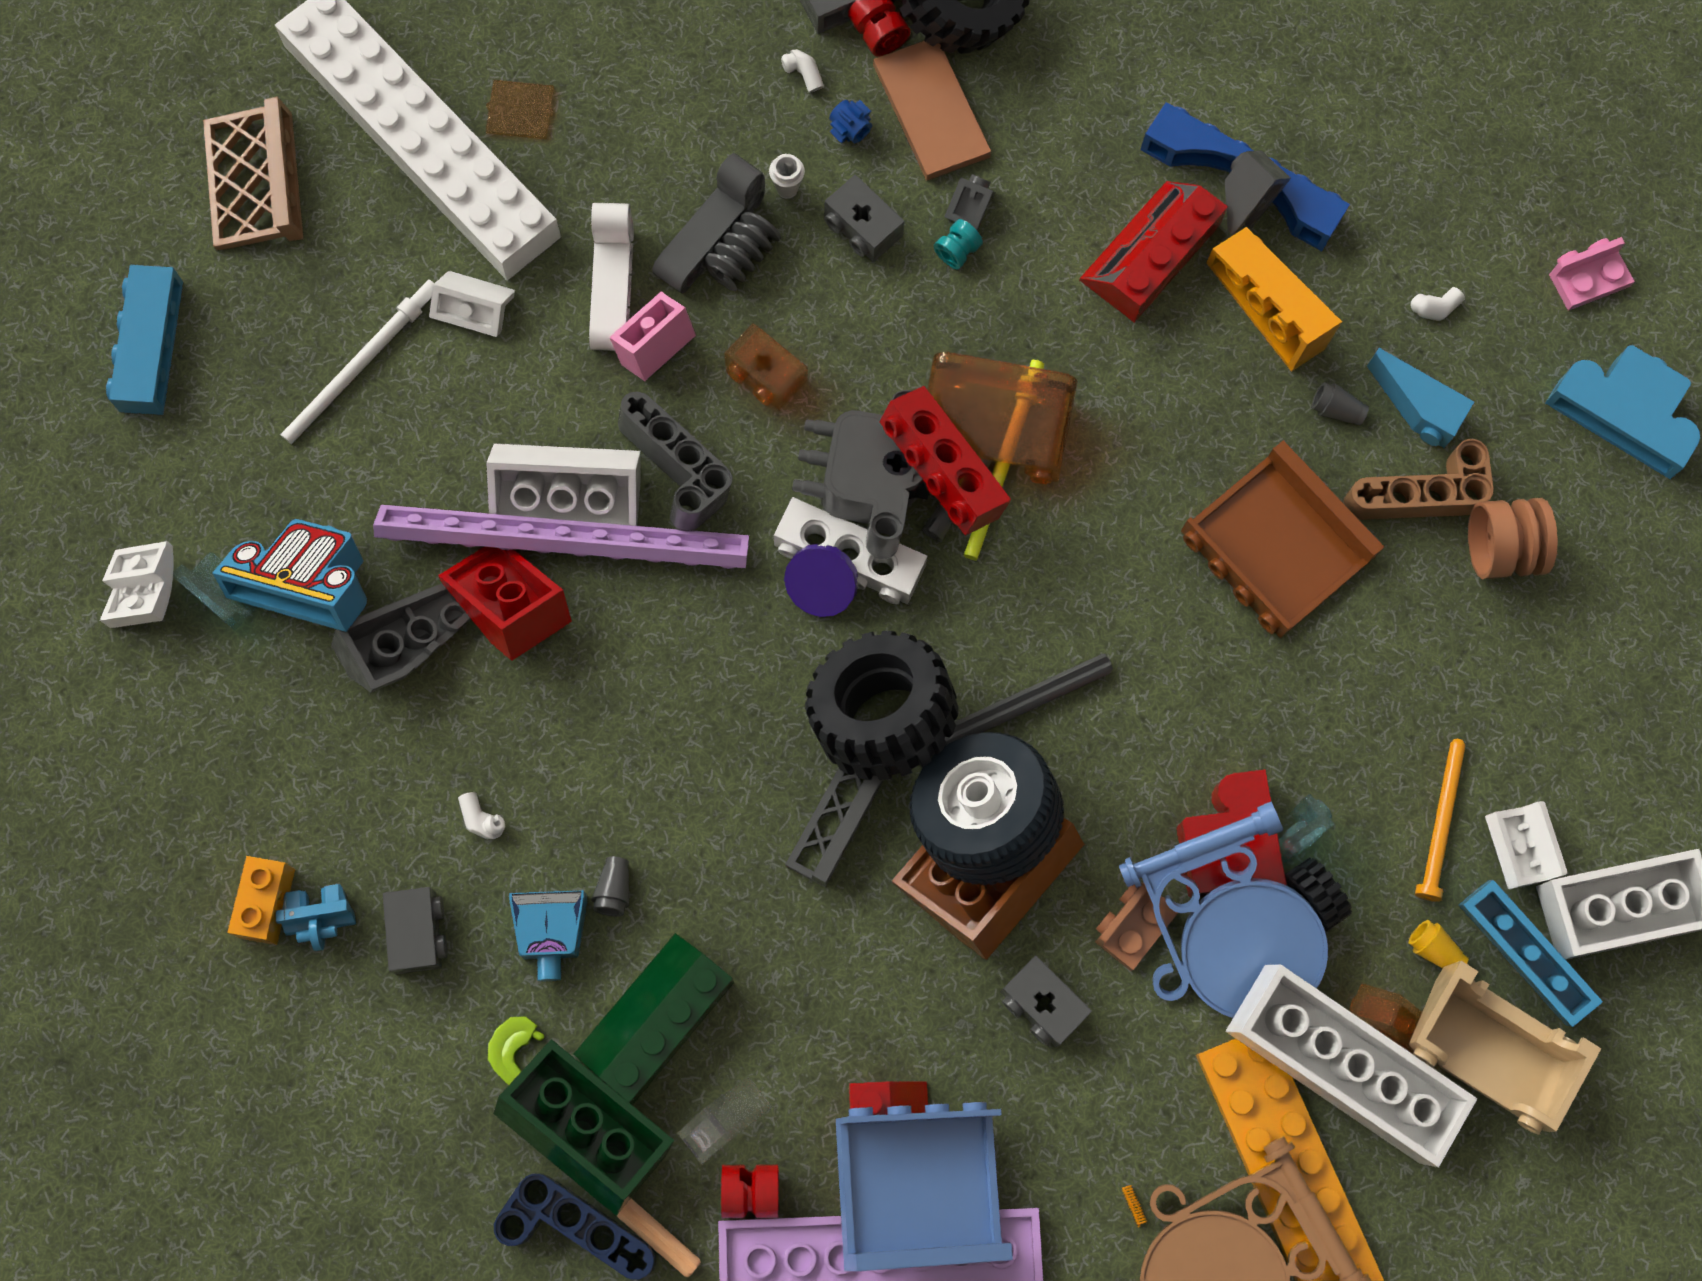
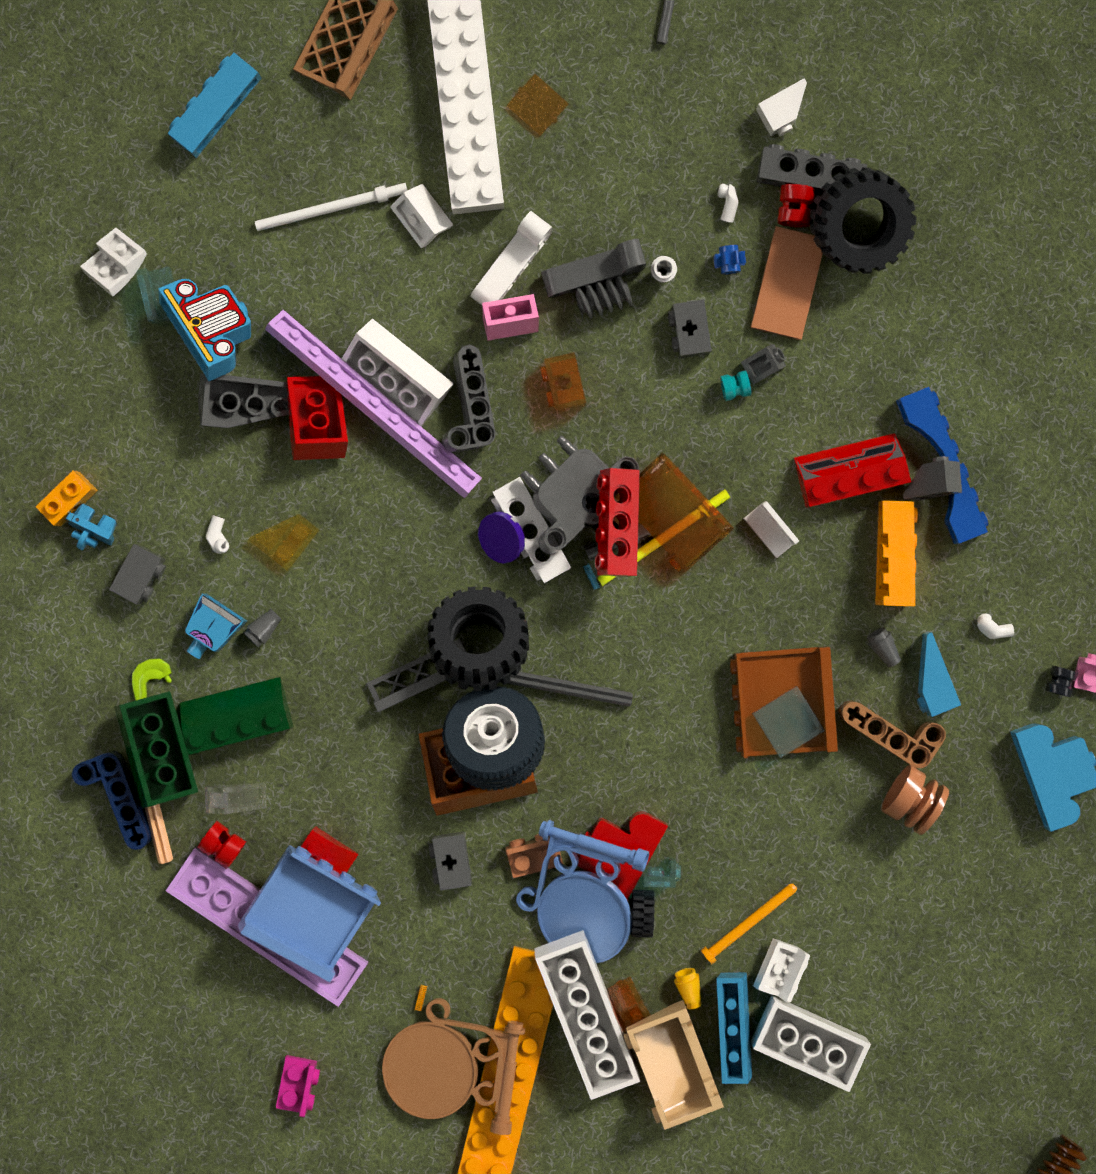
camera: 40 degrees right, 15 degrees up
(568, 765) = (286, 540): none -> clear yellow wing
(959, 557) = (593, 576): none -> medium azure leg
(1116, 364) = (771, 529): none -> white panel
(1302, 558) = (788, 722): none -> clear light blue tile
(1555, 307) = (1061, 681): none -> black wheel

